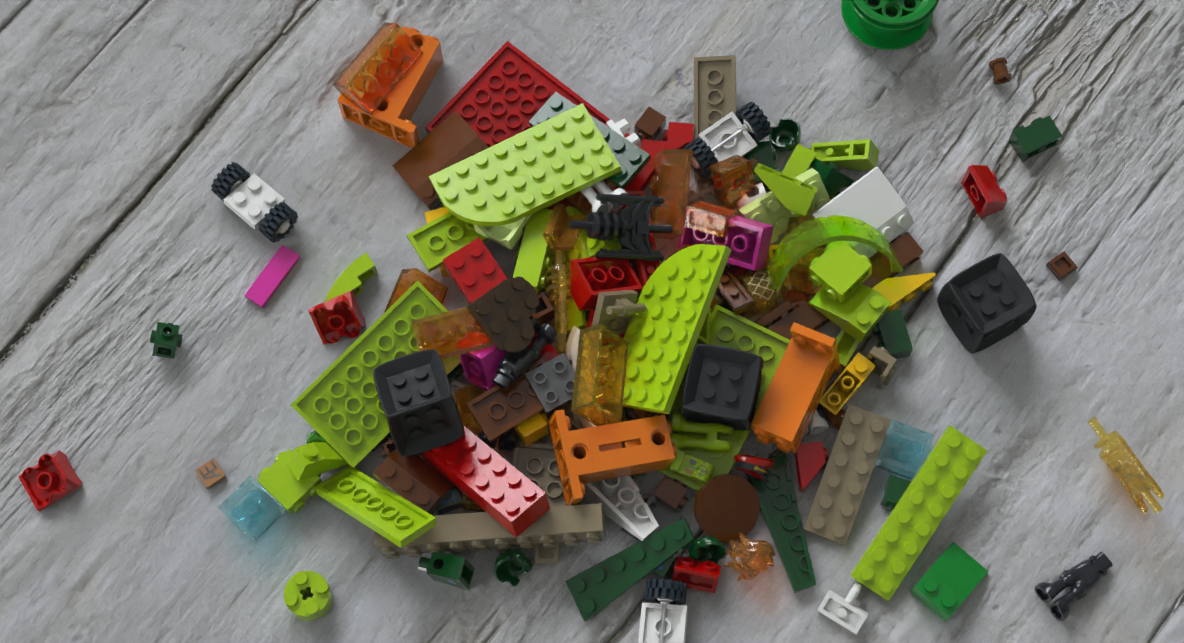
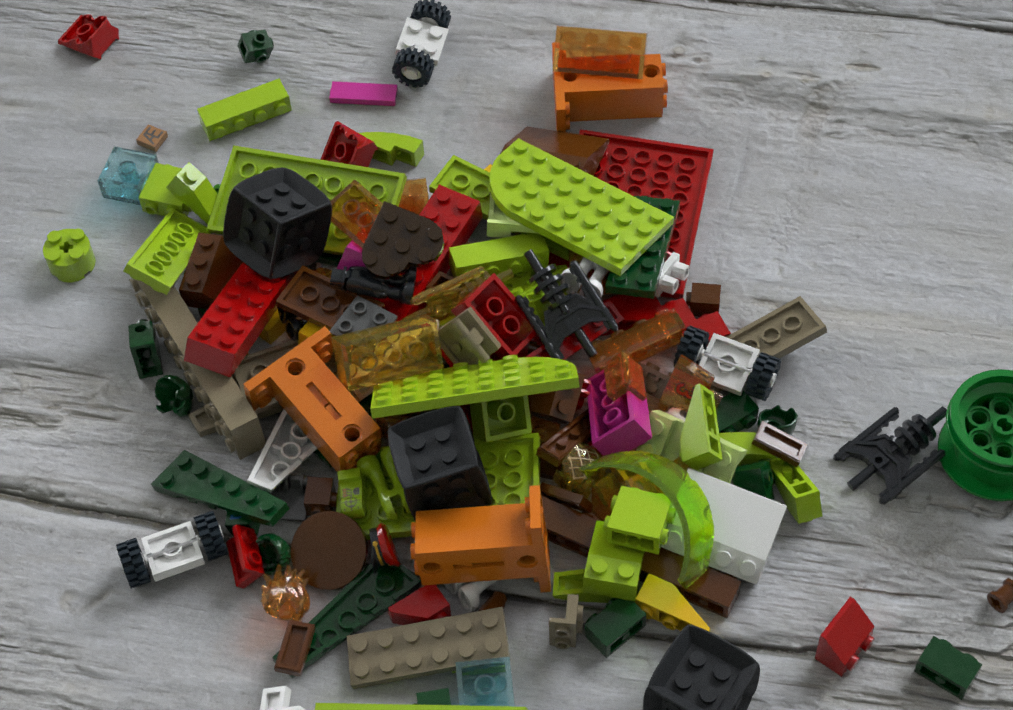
camera: 65 degrees right, 15 degrees down
(232, 381) = (244, 109): none -> lime brick
(557, 232) = (518, 264): clear orange panel -> none
(798, 570) = (294, 648): none -> reddish brown tile
(810, 144) = (779, 444): none -> tile
(847, 384) = (527, 601): yellow slope -> none
(853, 77) = (890, 455): none -> black bar

